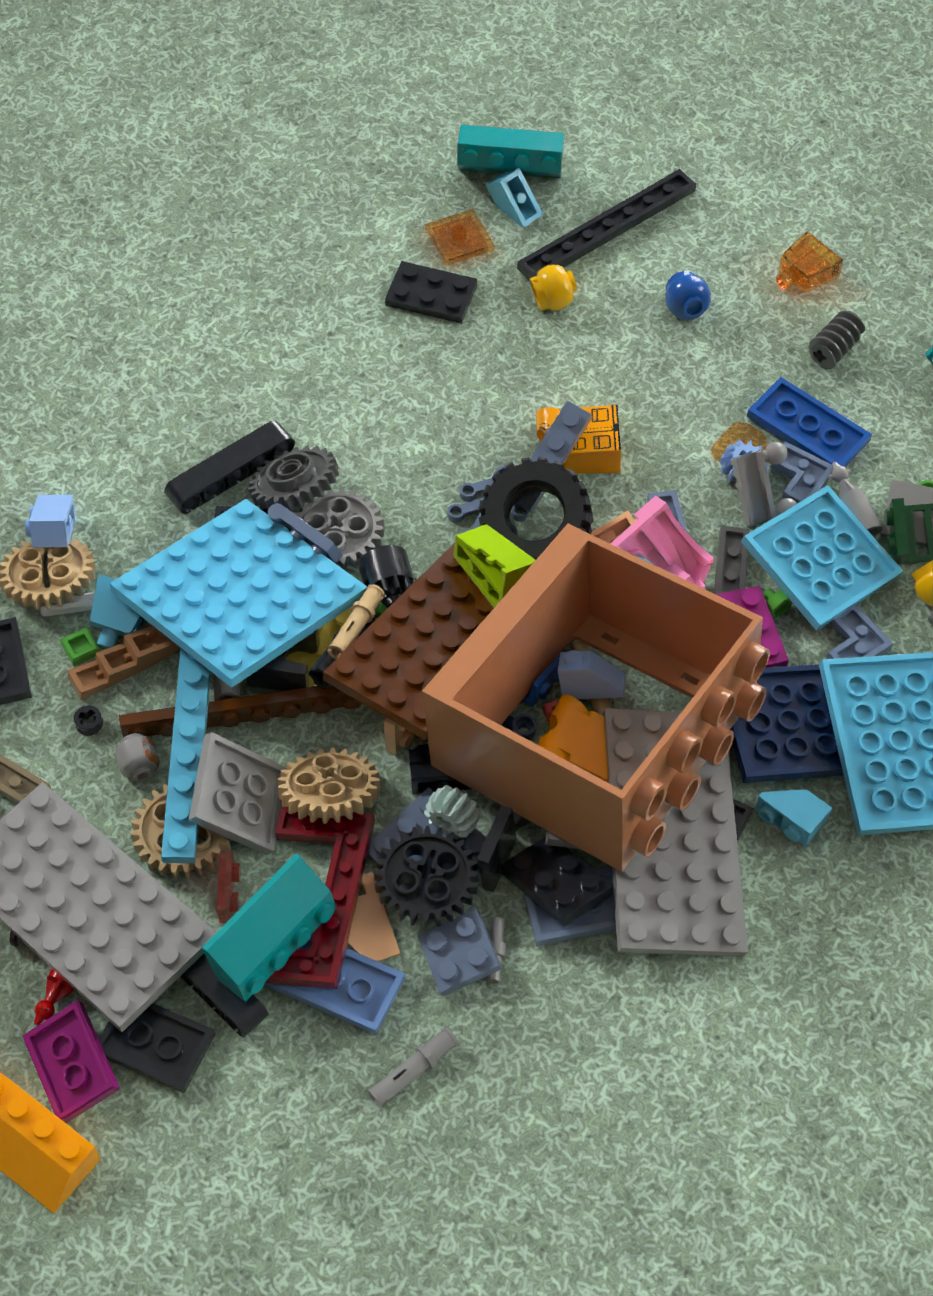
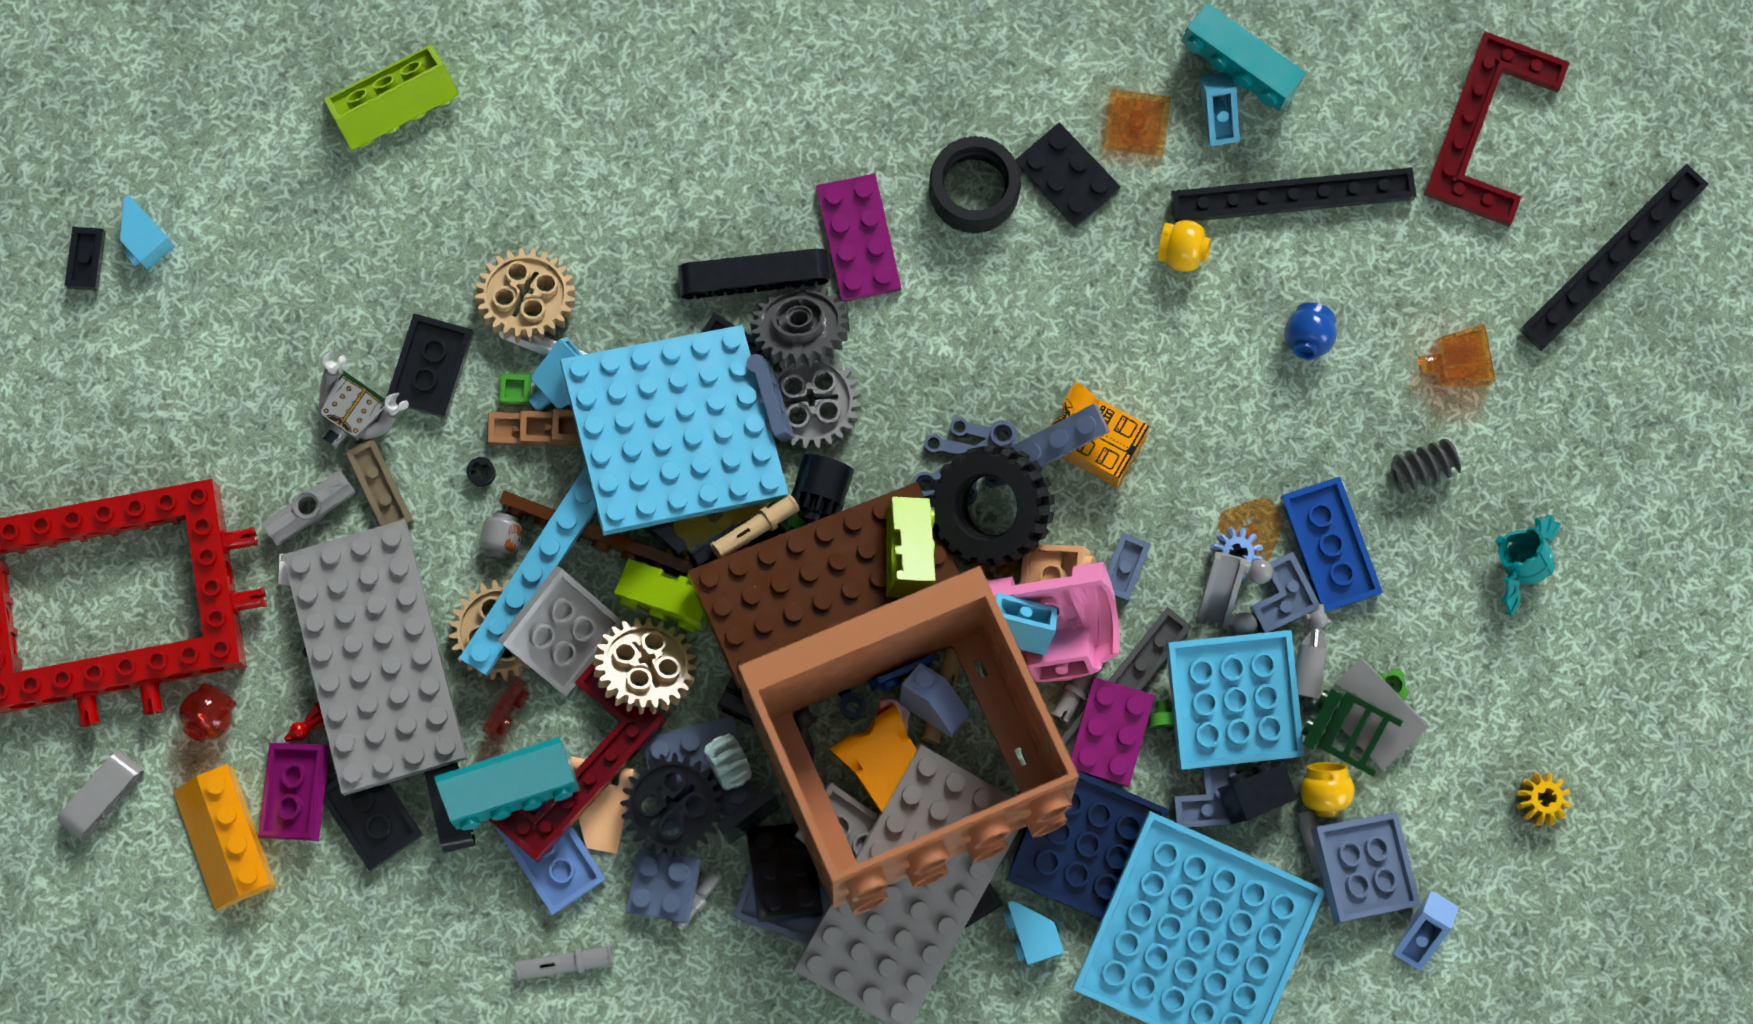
camera: 30 degrees right, 20 degrees up
(51, 521) = (555, 246): light blue brick -> none
(298, 405) = (858, 237): none -> magenta plate
(311, 725) = (660, 595): none -> lime wedge
(368, 349) = (974, 149): none -> black tyre
(708, 166) = (1448, 176): none -> dark red plate
(860, 160) = (1613, 257): none -> black plate
(888, 611) = (1256, 793): none -> black brick

